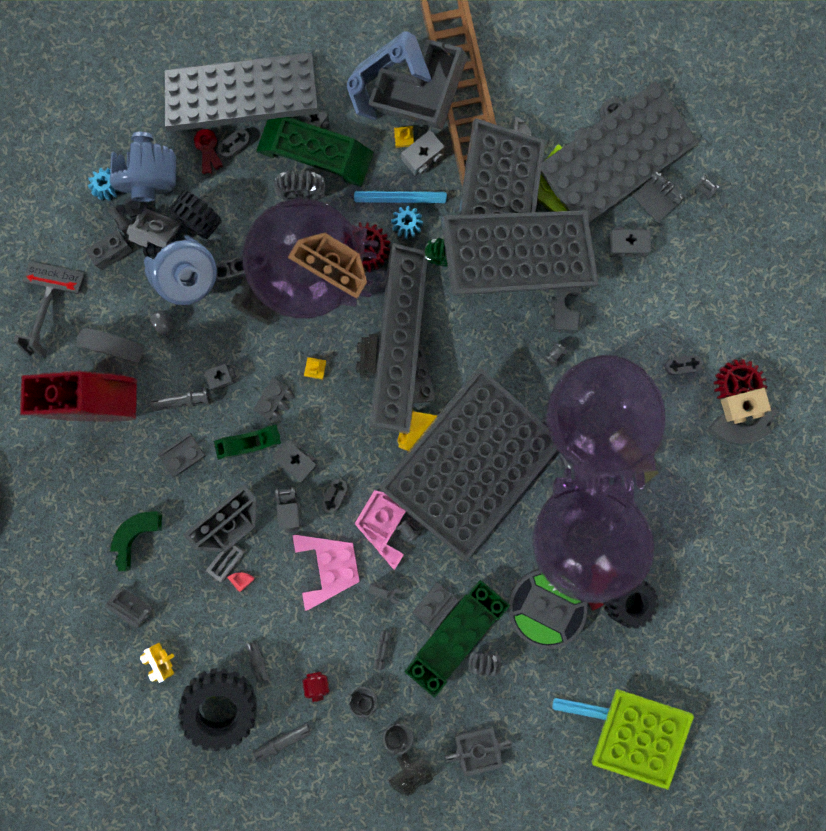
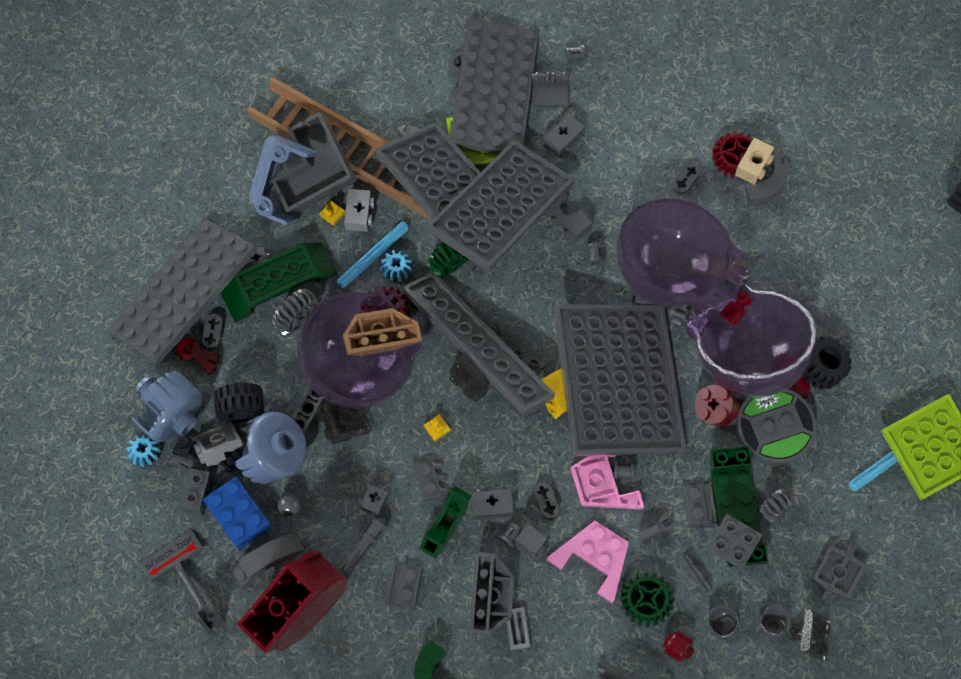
camera: 45 degrees left, 15 degrees down
(120, 292) = (237, 513): none -> blue brick
(240, 580) = (543, 630): coral tile -> none
(321, 632) = (652, 606): none -> dark green gear
(426, 660) = (734, 541): none -> dark grey bracket
(509, 551) = (717, 415): none -> dark red brick
(605, 502) = (735, 310): none -> dark red plate

